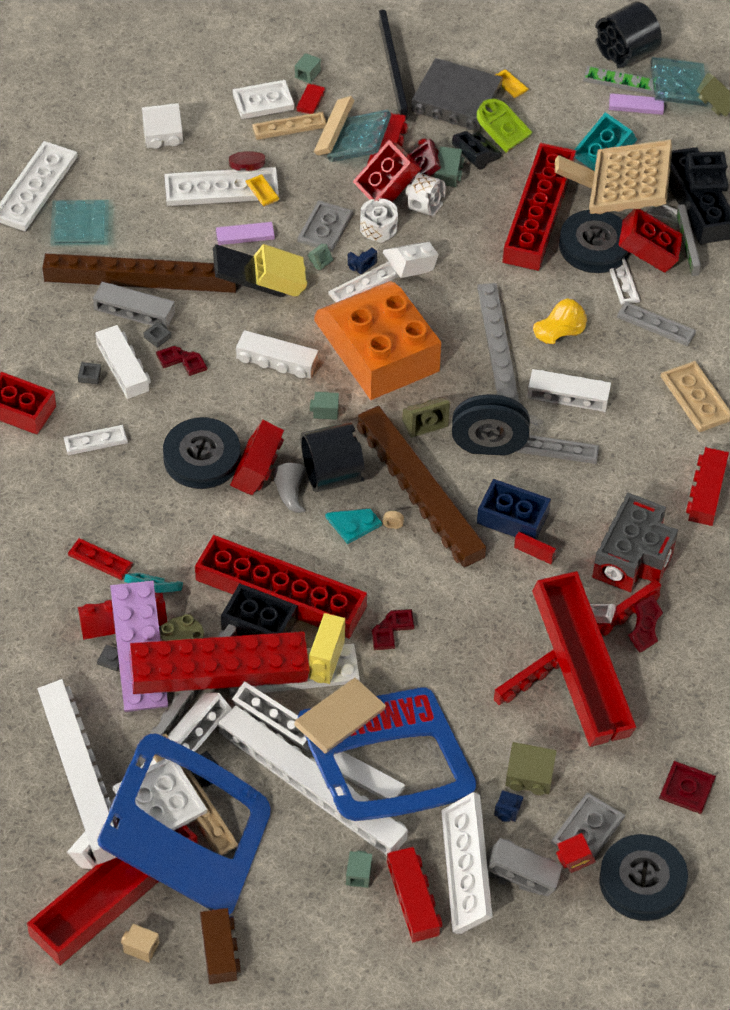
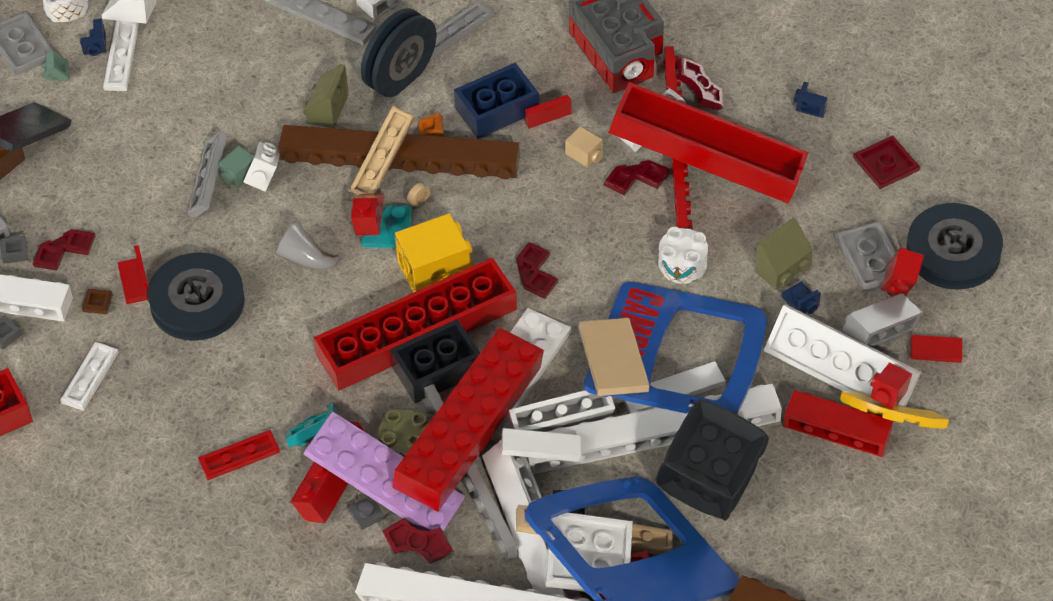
camera: 50 degrees left, 0 degrees up
(112, 708) = (430, 544): none -> dark red tile
(156, 405) = (97, 301): none -> reddish brown tile
(192, 408) = (134, 278): none -> red panel
(231, 718) = (540, 445): none -> white tile
(257, 458) = (253, 251): red brick -> none
(277, 354) = (139, 168): white brick -> none
(280, 270) = (46, 103): light yellow brick -> none
(297, 827) = (711, 459): none -> black piece
(305, 393) = (207, 175): none -> light grey tile
(326, 648) = (530, 320): light yellow brick -> none
(332, 457) = (314, 190): black brick -> none
(339, 414) = (262, 166): none -> white bracket
(344, 556) = (432, 251): none -> yellow brick
(348, 499) = (367, 213): none -> red slope
(359, 869) = (780, 449): sand green brick -> none
(381, 338) = (205, 75): orange brick -> none
(402, 474) = (382, 152): none -> tan tile
(448, 923) = (923, 418): none -> yellow tile
(459, 490) = (432, 125): none -> orange tile
(459, 903) = (890, 385): none -> red brick
(477, 707) = (683, 255): none -> white brick
(522, 589) = (584, 147): none -> tan brick
(523, 630) = (647, 172): none -> dark red tile
(539, 921) = (936, 348): none -> red tile
(694, 702) = (810, 103): none -> dark blue bracket

